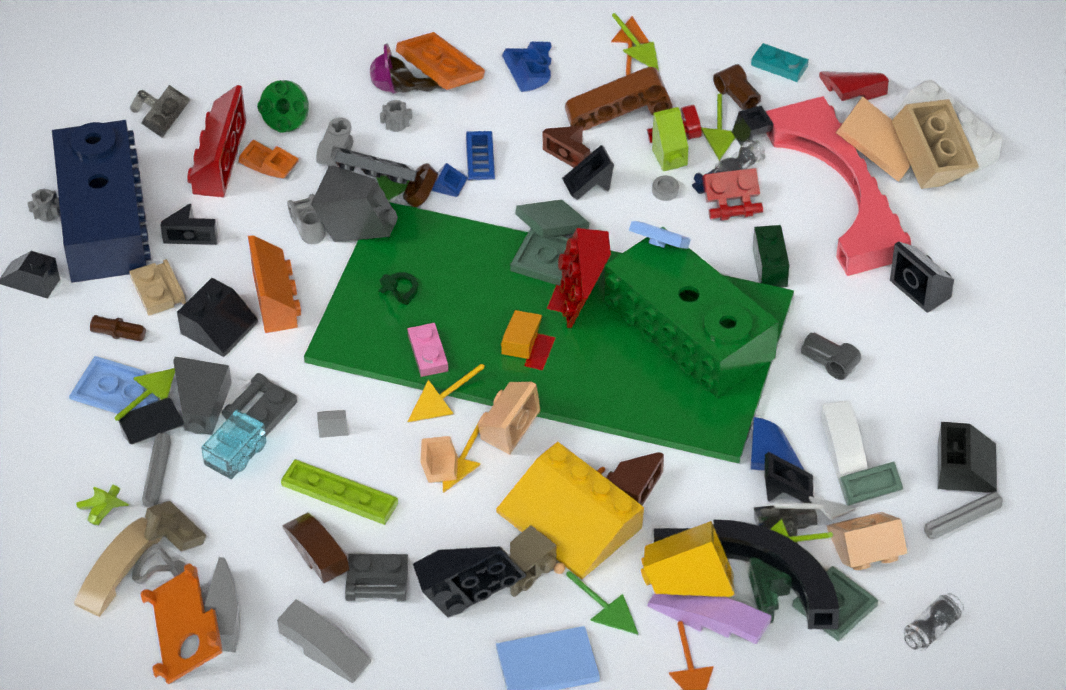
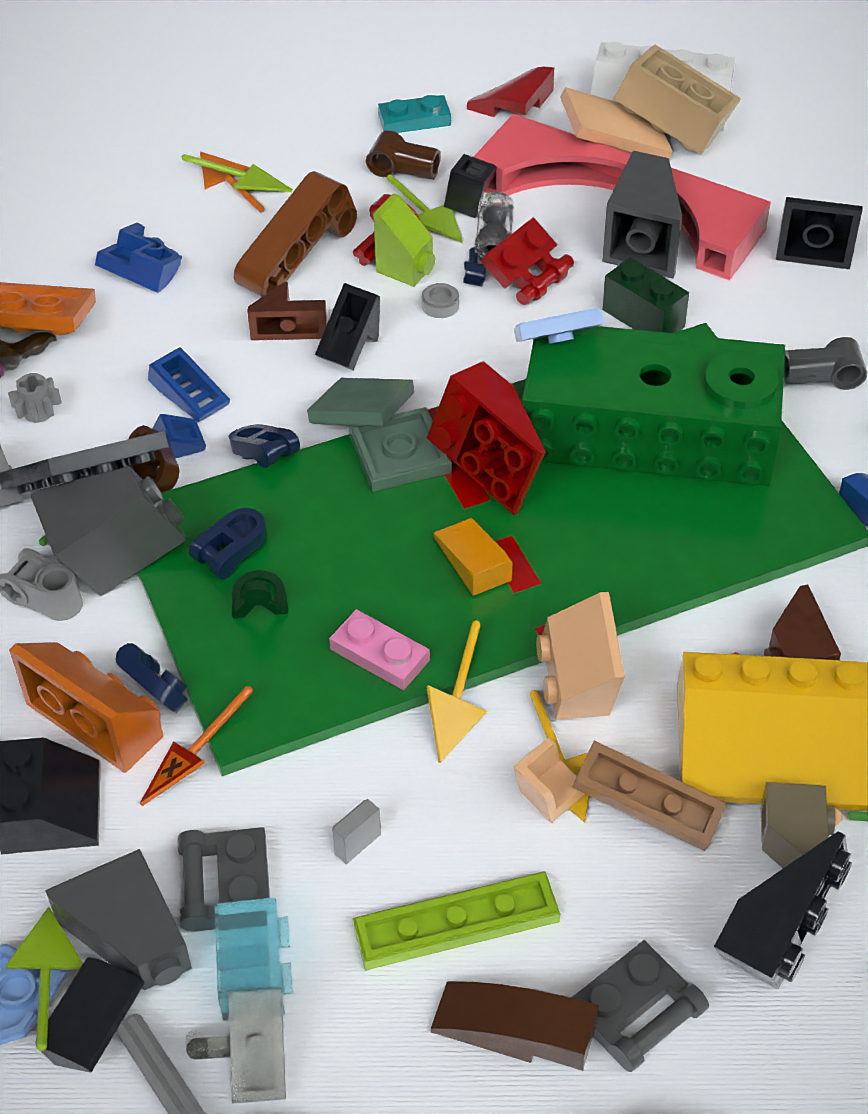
camera: 40 degrees left, 0 degrees up
(198, 475) = (251, 1045): none -> clear smoke plate
(291, 341) = (180, 761): none -> orange piece
(311, 294) = (146, 671): none -> dark blue plate
(419, 250) = (242, 533): none -> dark blue plate
(476, 496) = (649, 795): none -> medium nougat plate
(480, 209) = (263, 443): none -> dark blue plate
(823, 204) = (644, 216): none -> dark grey slope

